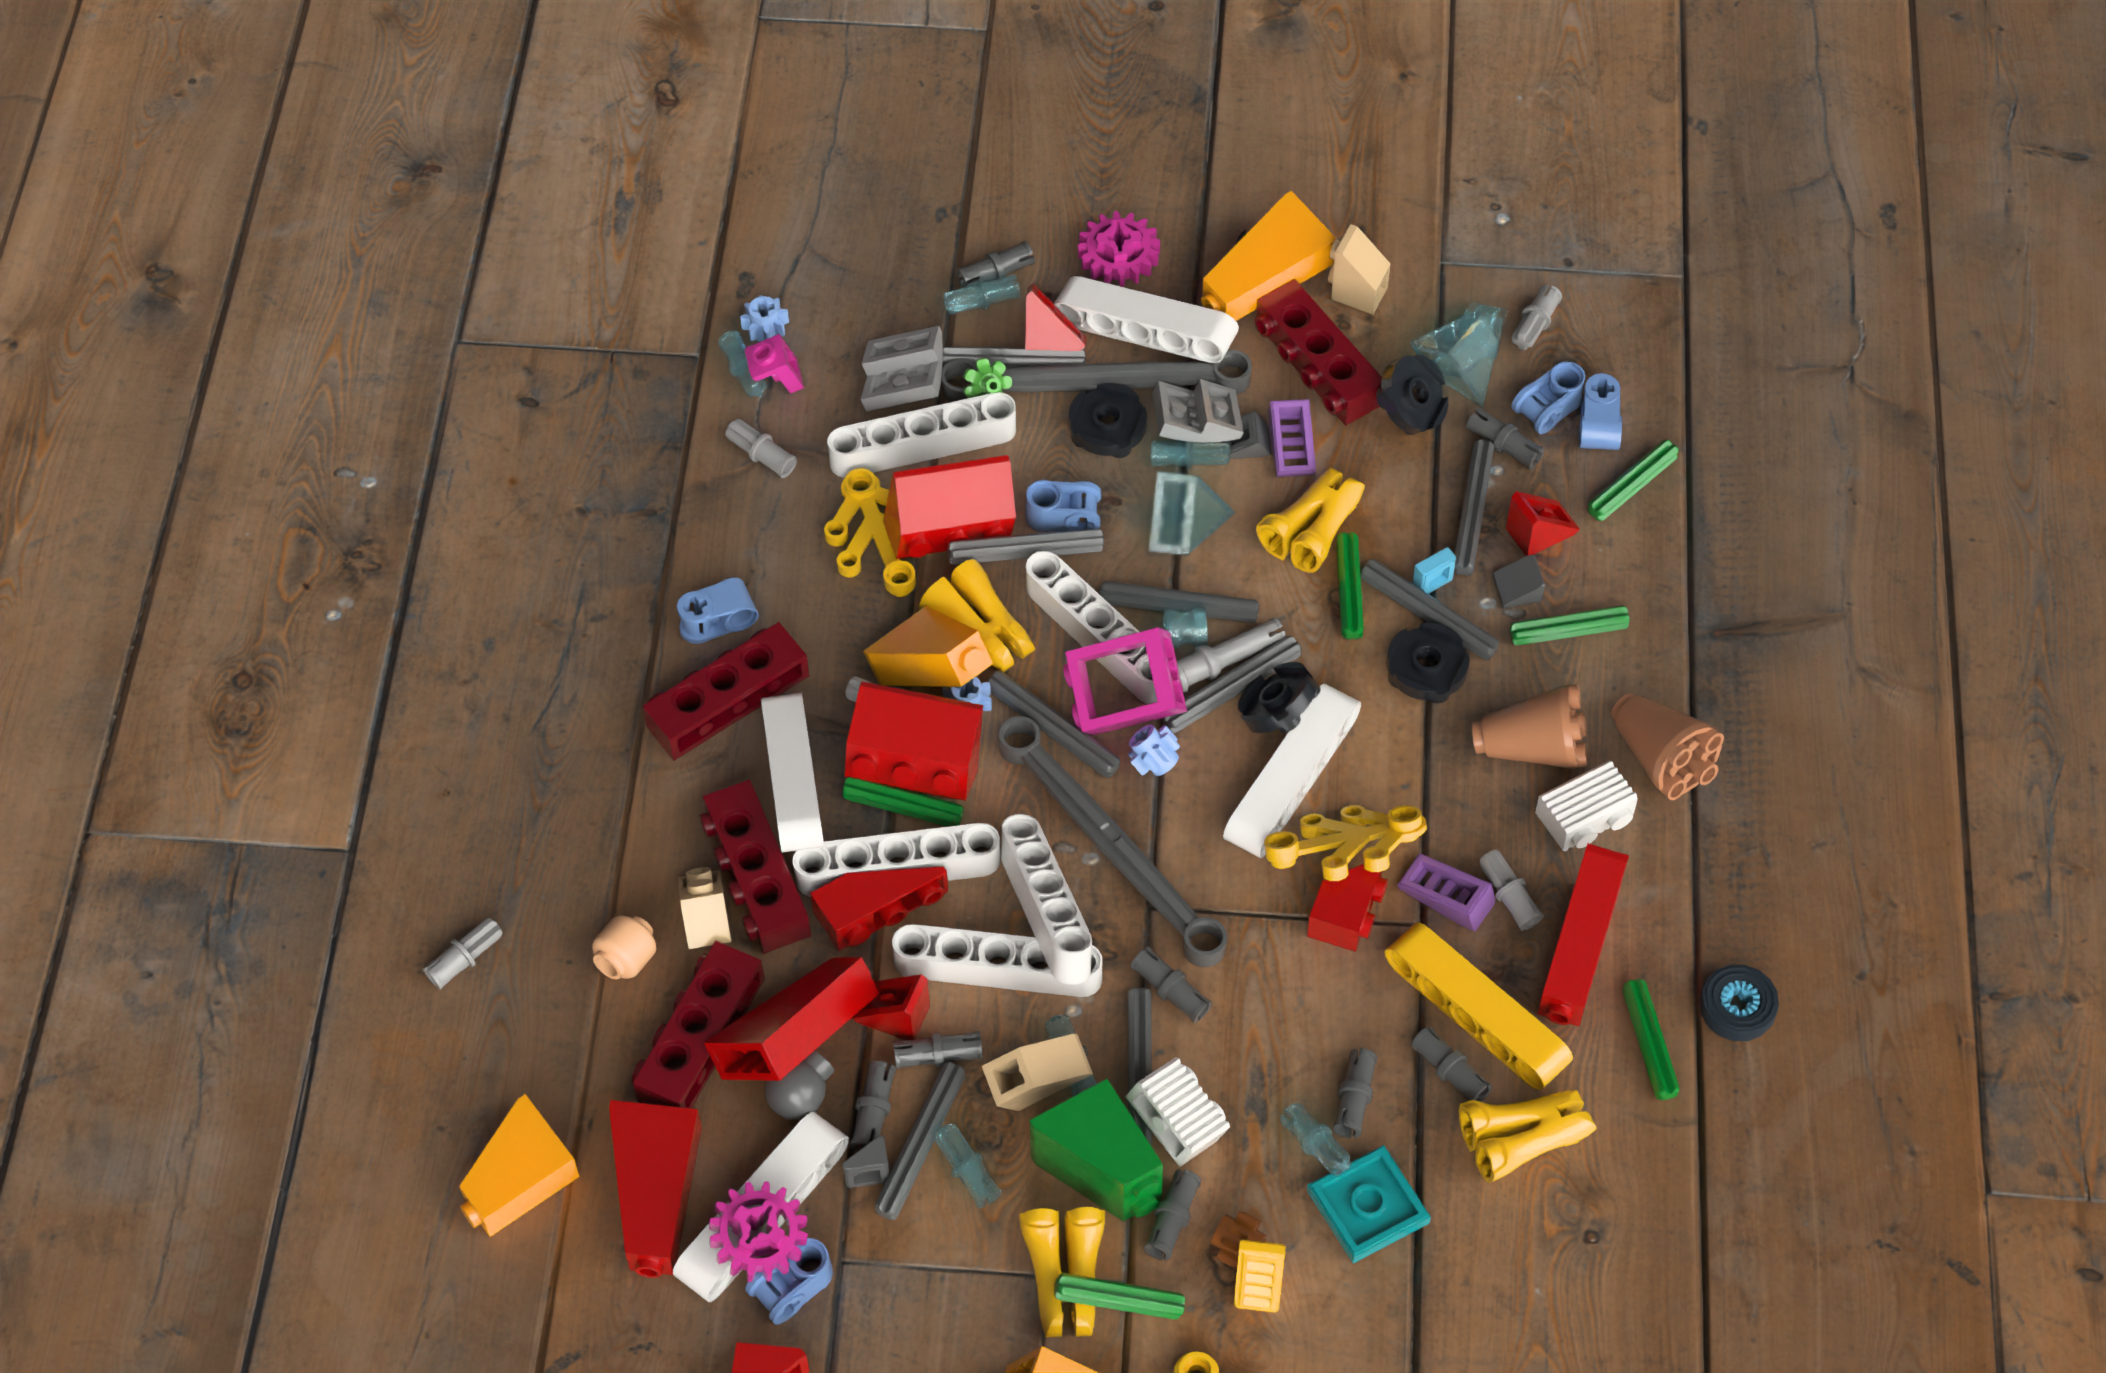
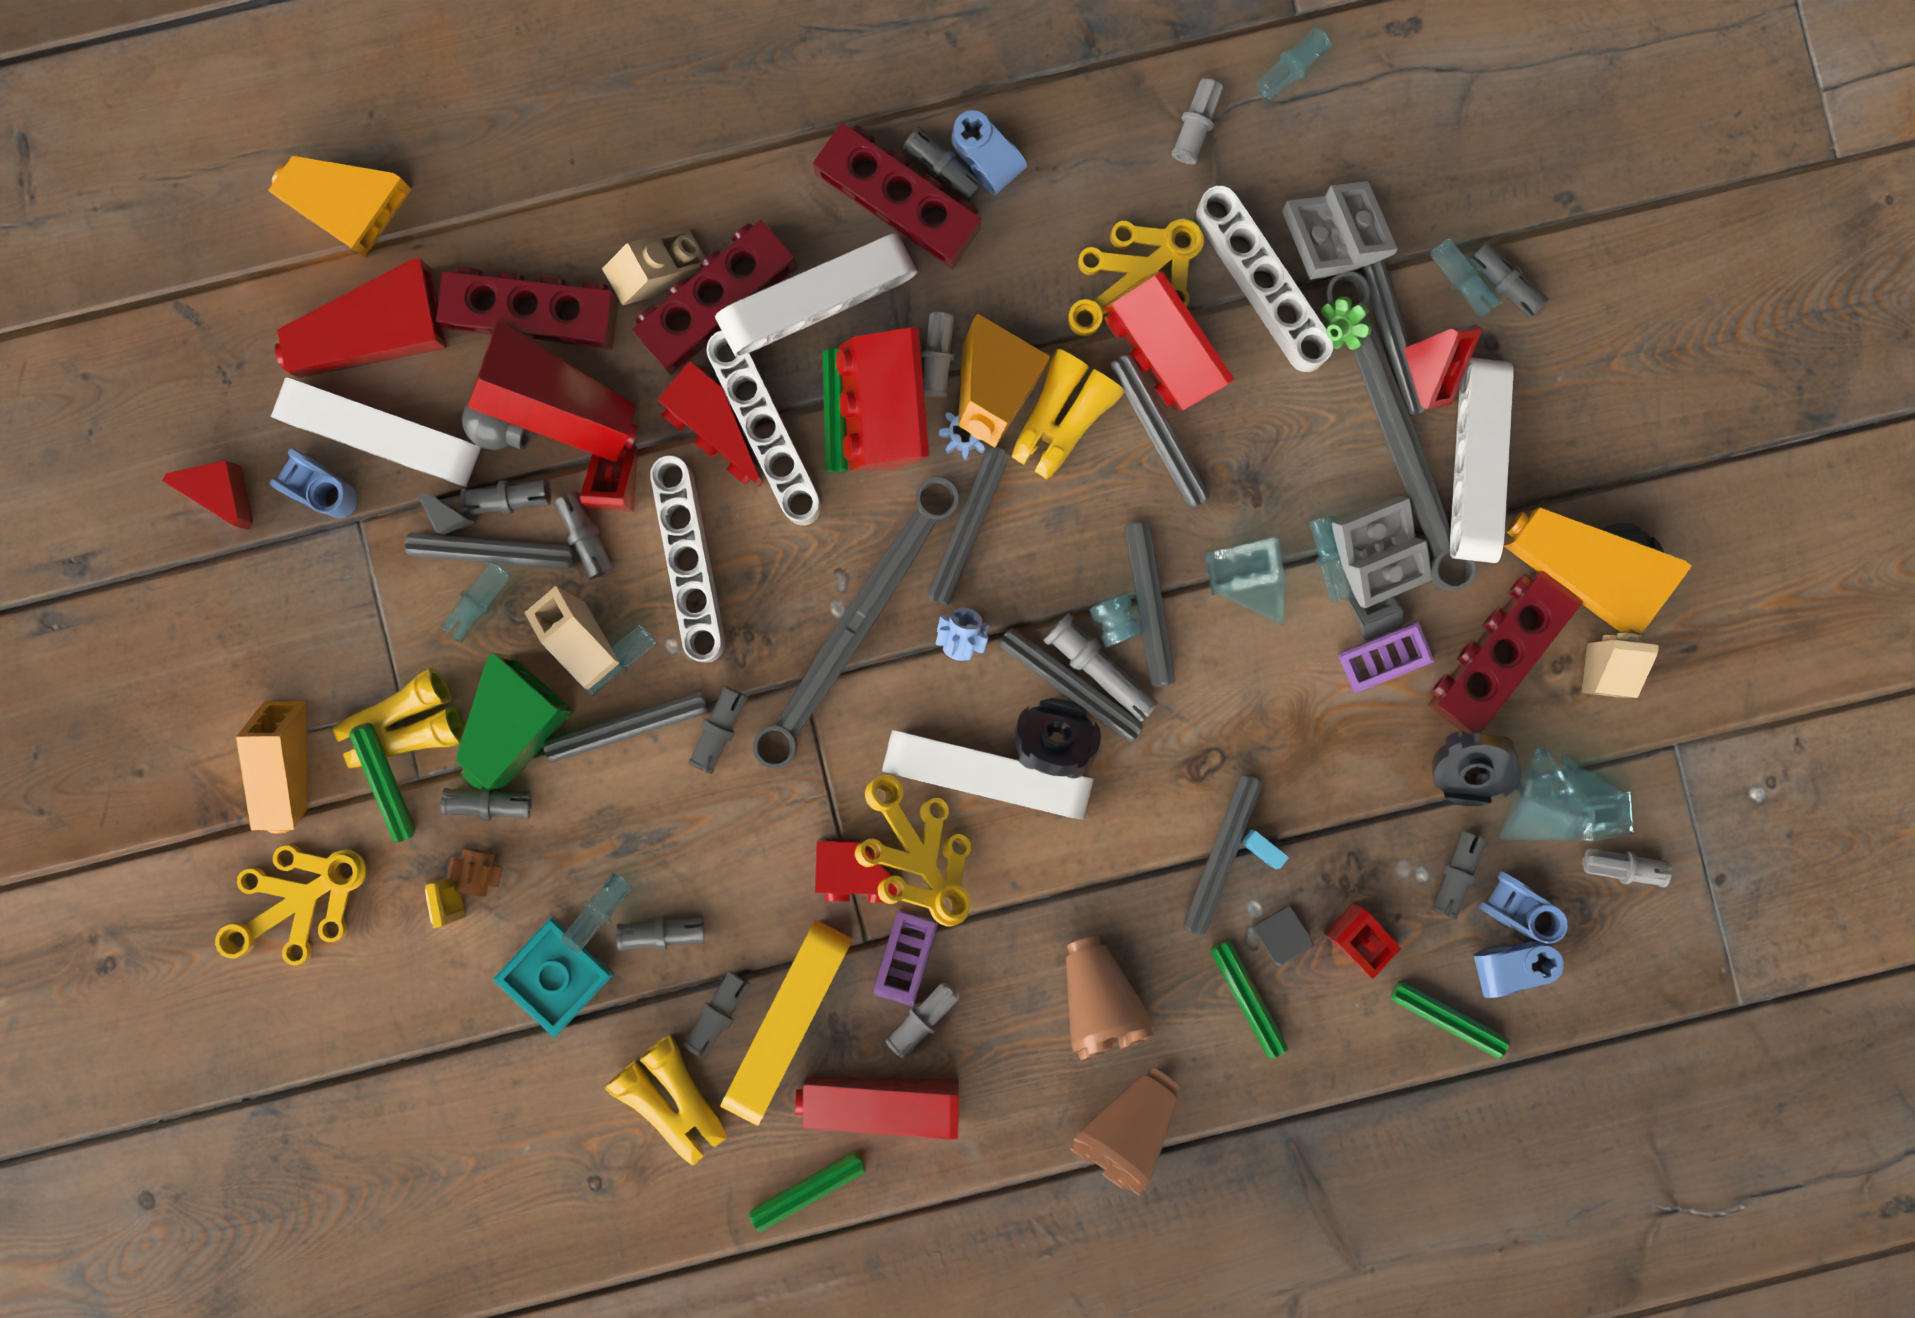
camera: 70 degrees right, 30 degrees up
(462, 953) = (539, 60): light grey axle -> none
(624, 947) = (587, 207): light nougat head -> none
(709, 649) = (942, 164): none -> dark grey pin
(744, 1220) = (328, 426): dark pink gear -> none
(764, 318) = (1356, 53): light blue gear -> none
(774, 359) = (1301, 96): dark pink bracket -> none
(1046, 899) = (765, 572): white beam -> none
(1062, 506) = (1223, 455): medium blue piece -> none
(1080, 617) = (1103, 518): white beam -> none
(1107, 439) = (1365, 444): black plate -> none
(1137, 248) = (1567, 386): dark pink gear -> none
(1164, 674) = (1035, 618): dark pink window -> none
(1178, 1111) = (579, 779): white brick -> none
(1293, 528) = (1269, 683): yellow piece -> none
(1349, 586) = (1225, 767): green axle -> none
(1427, 682) = (1171, 890): black plate -> none
(1473, 507) = (1363, 865): dark grey axle -> none
(1587, 806) = (1036, 1071): white brick -> none
(1750, 987) = (866, 1286): black bush -> none

